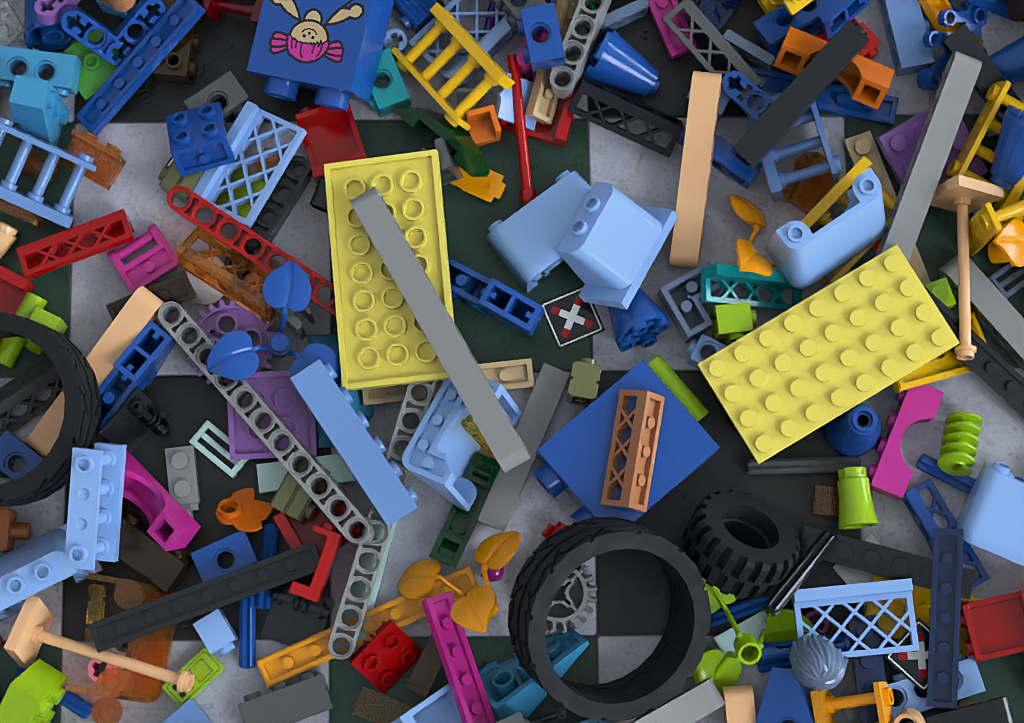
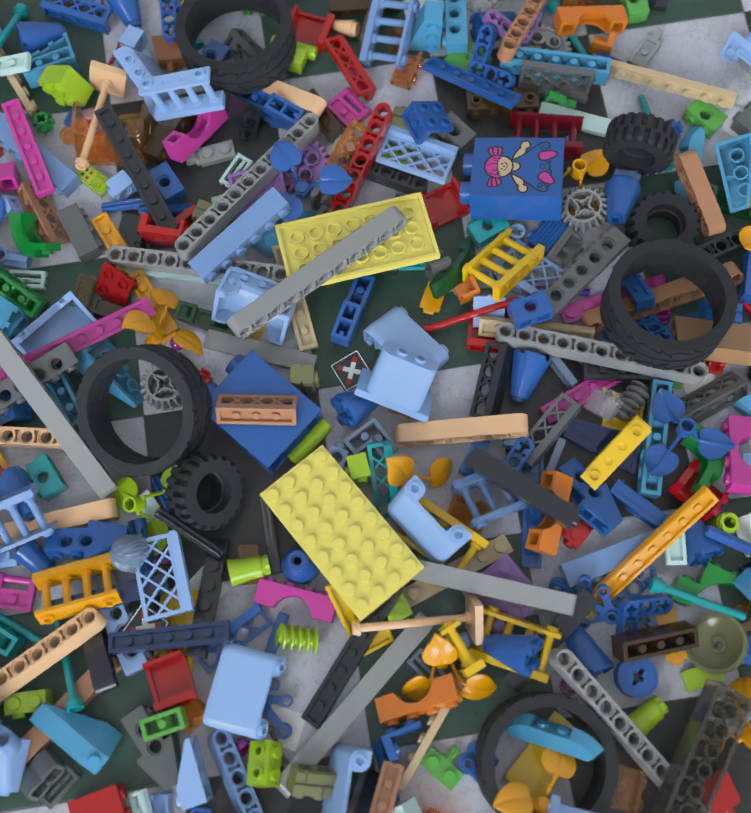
camera: 85 degrees right, 5 degrees down
(243, 511) = (197, 188): orange plate -> none

